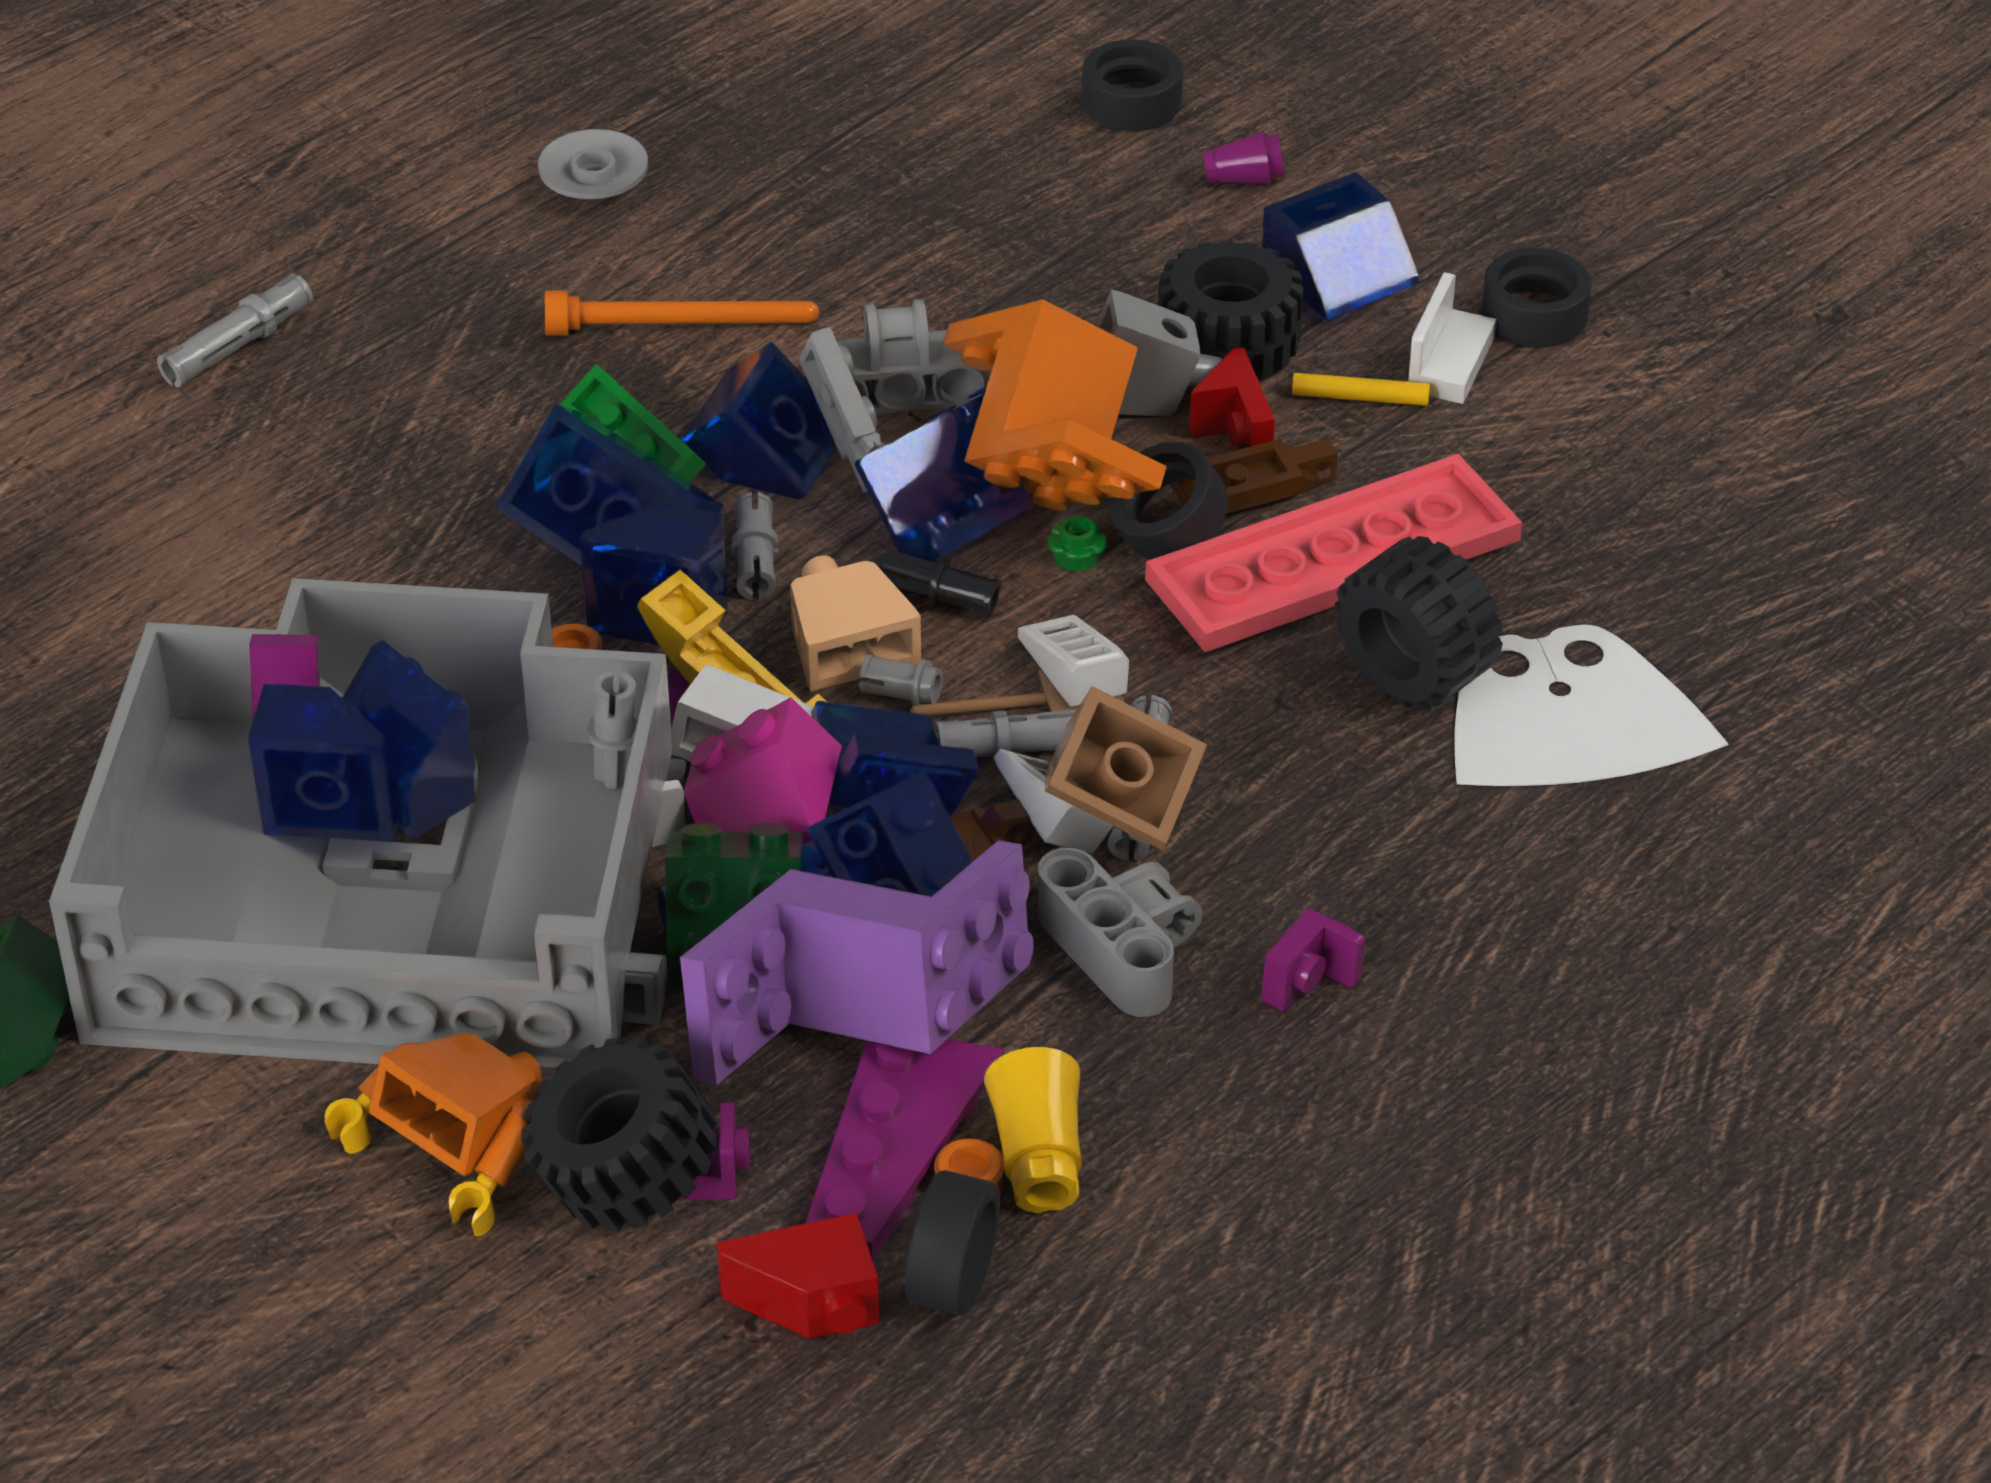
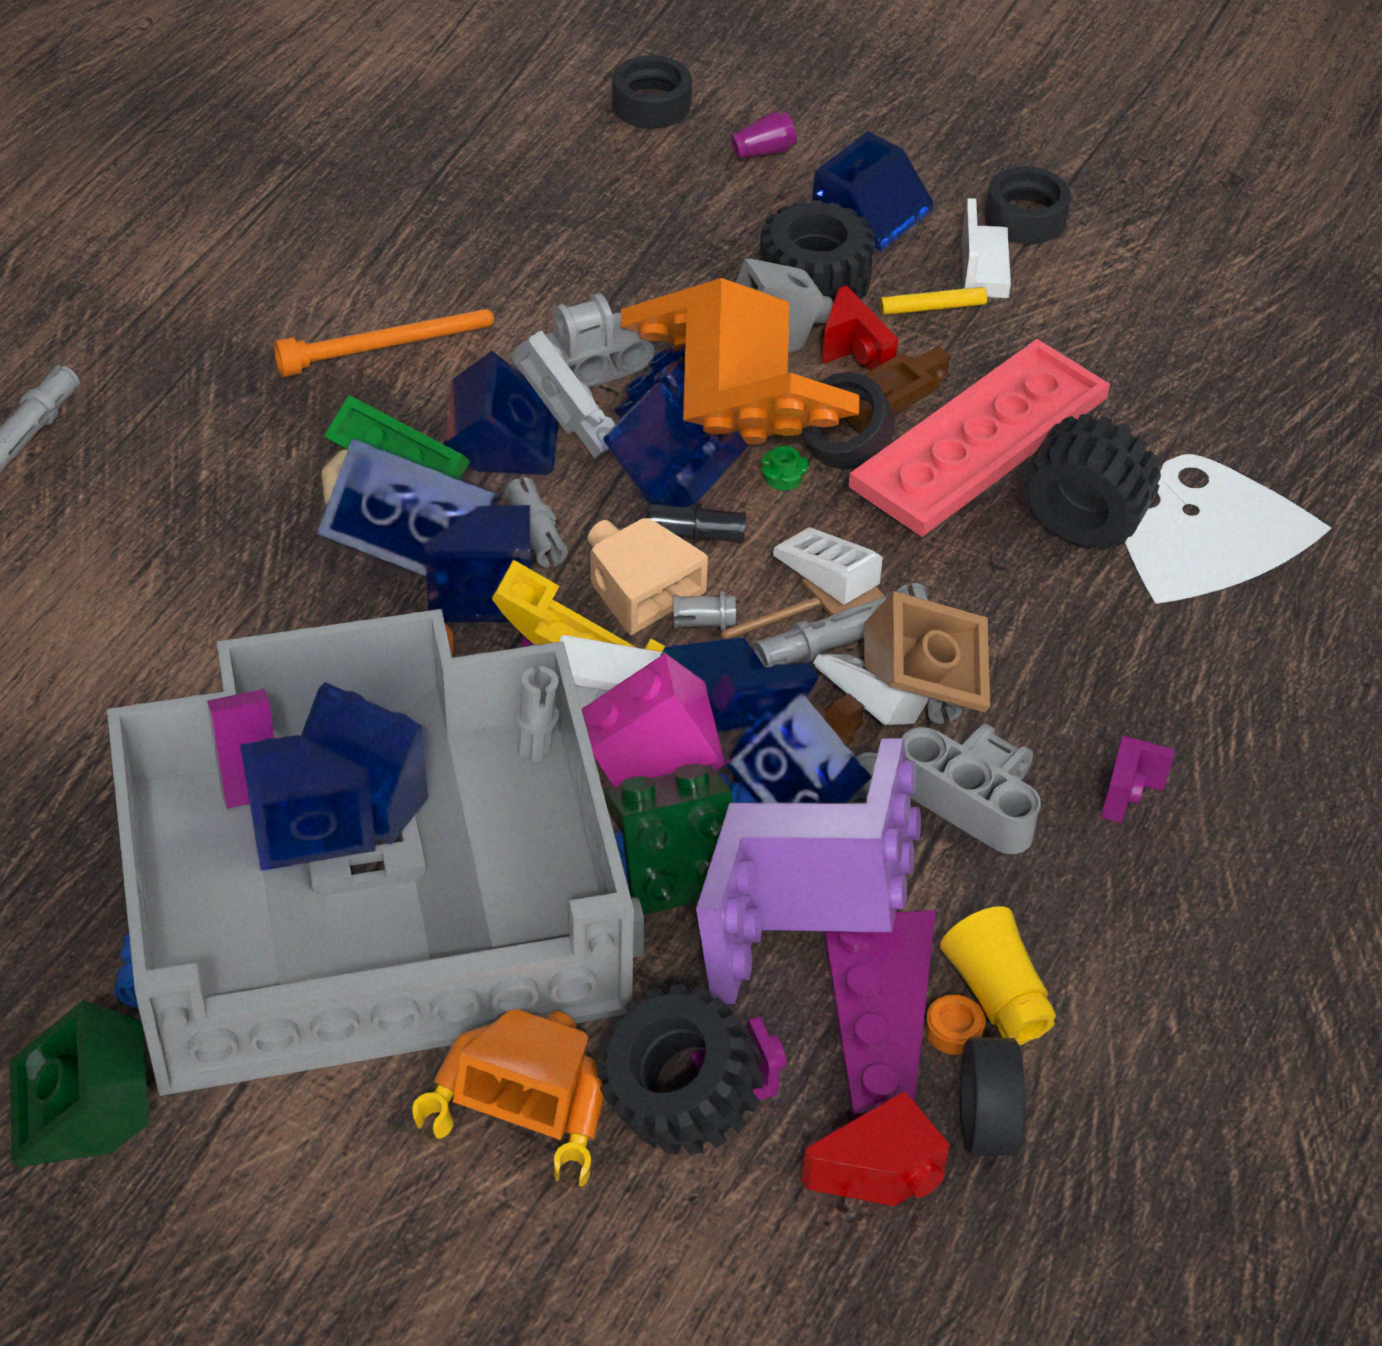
camera: 20 degrees left, 5 degrees up
(593, 164) = (263, 228): light grey dish -> none

